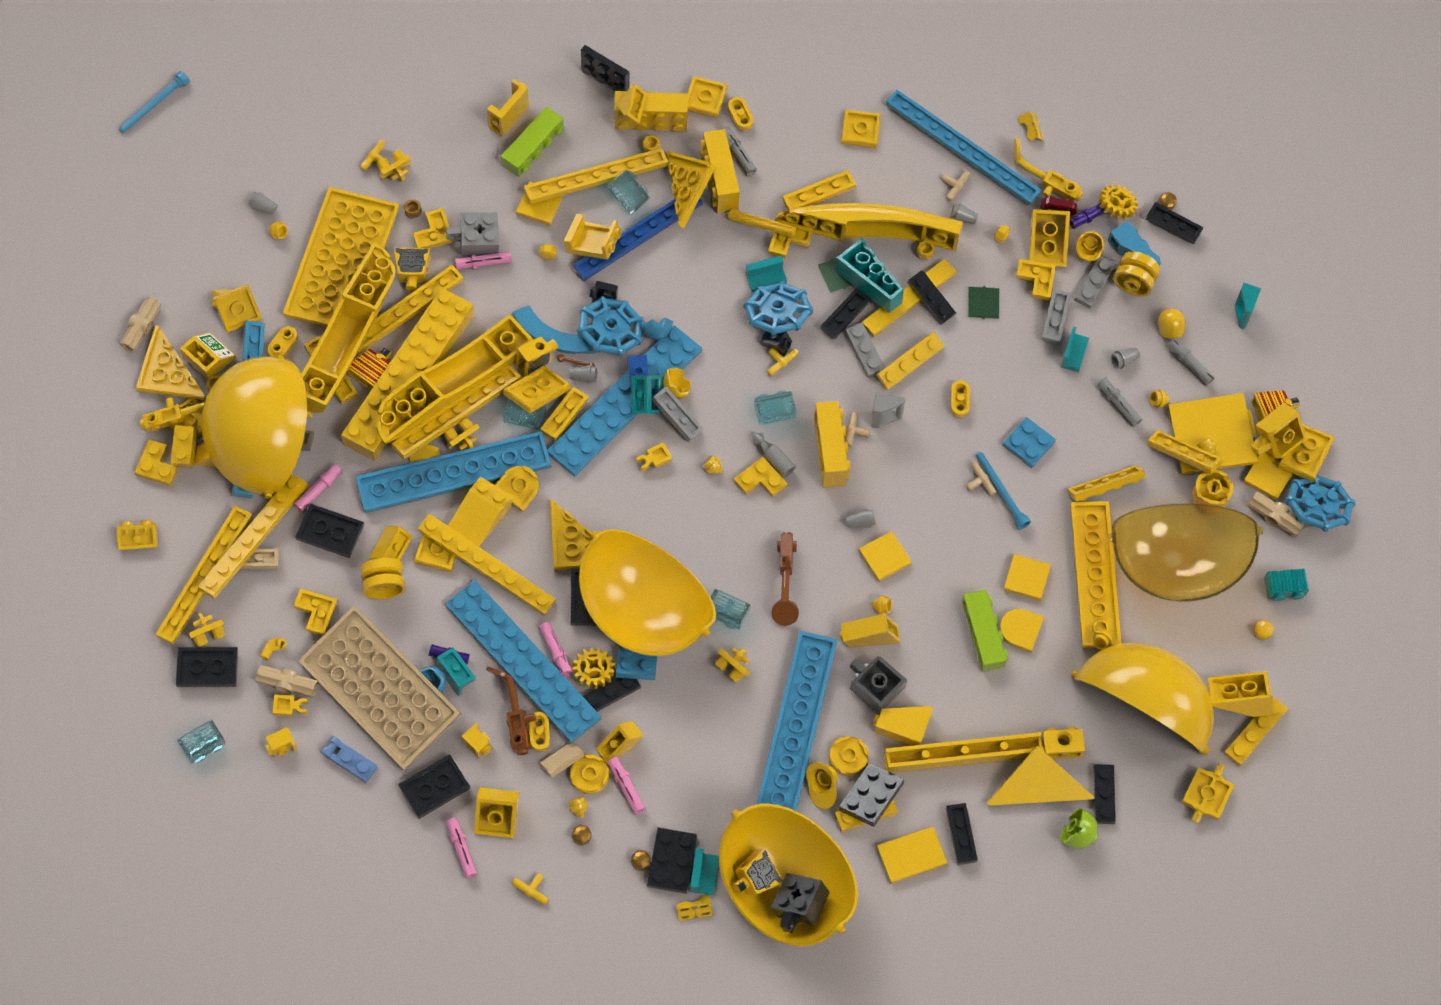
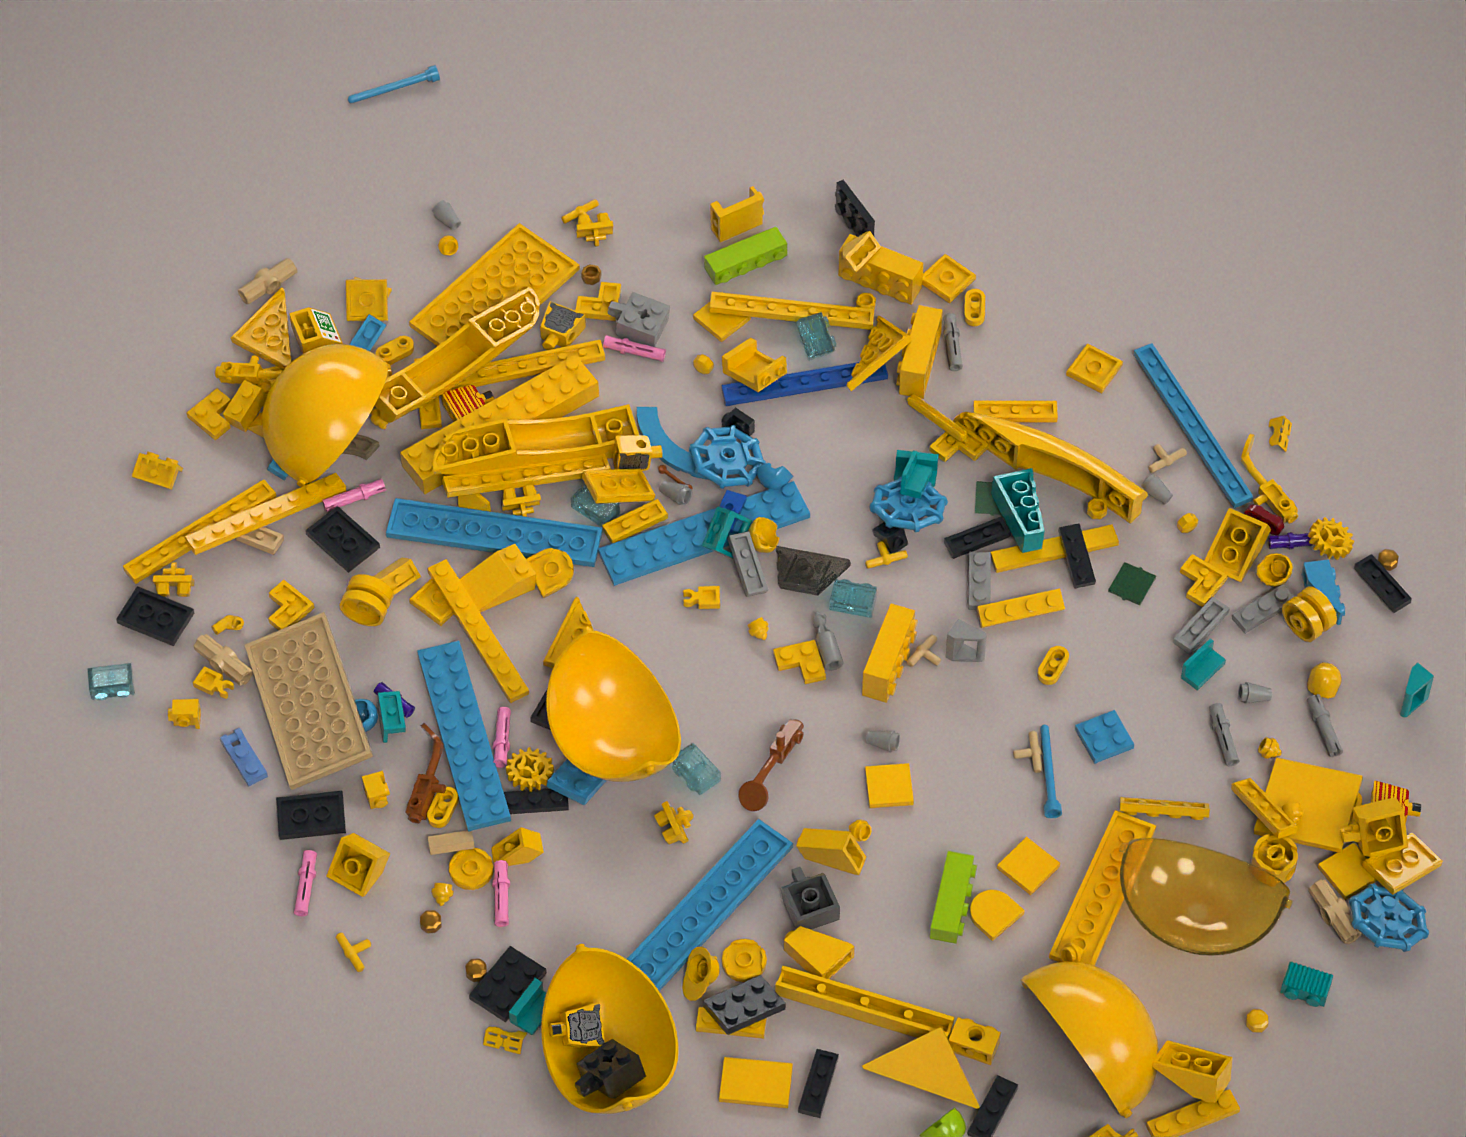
camera: 30 degrees right, 10 degrees down
(727, 399) = (807, 570): none -> clear smoke wing
(774, 284) = (915, 477): none -> teal panel

